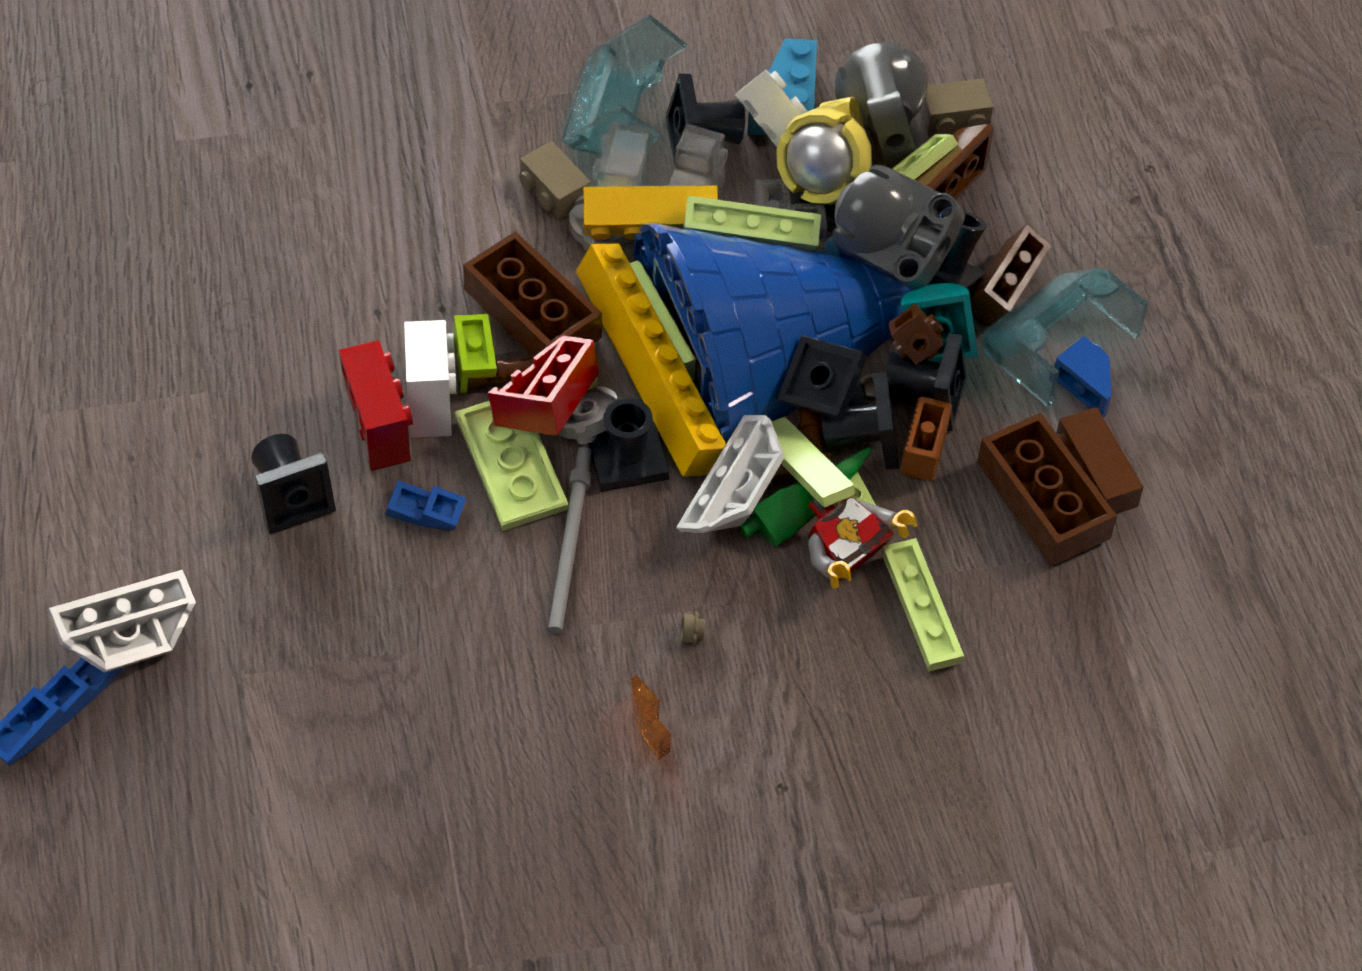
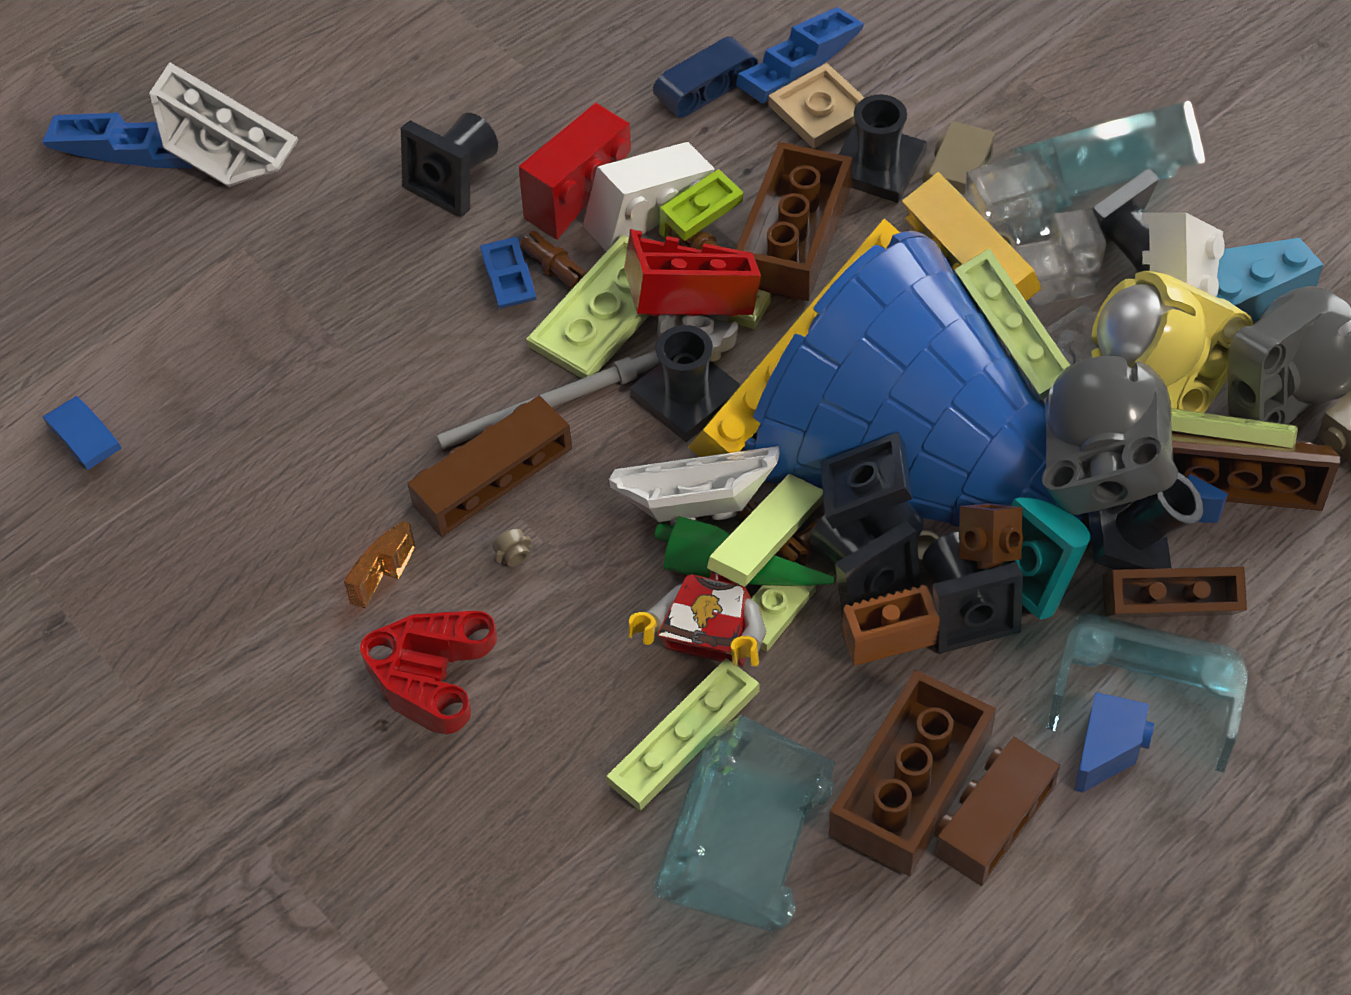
camera: 65 degrees right, 0 degrees up
(334, 280) = (703, 76): none -> dark blue beam
(360, 212) = (808, 48): none -> blue slope
(360, 865) = (82, 432): none -> blue slope
(423, 228) = (817, 105): none -> tan plate
(439, 470) = (552, 259): none -> reddish brown pin
(502, 212) = (879, 151): none -> black plant
(608, 604) = (490, 465): none -> reddish brown brick
(784, 749) = (419, 661): none -> red connector
(1014, 612) = (743, 825): none -> clear light blue windscreen

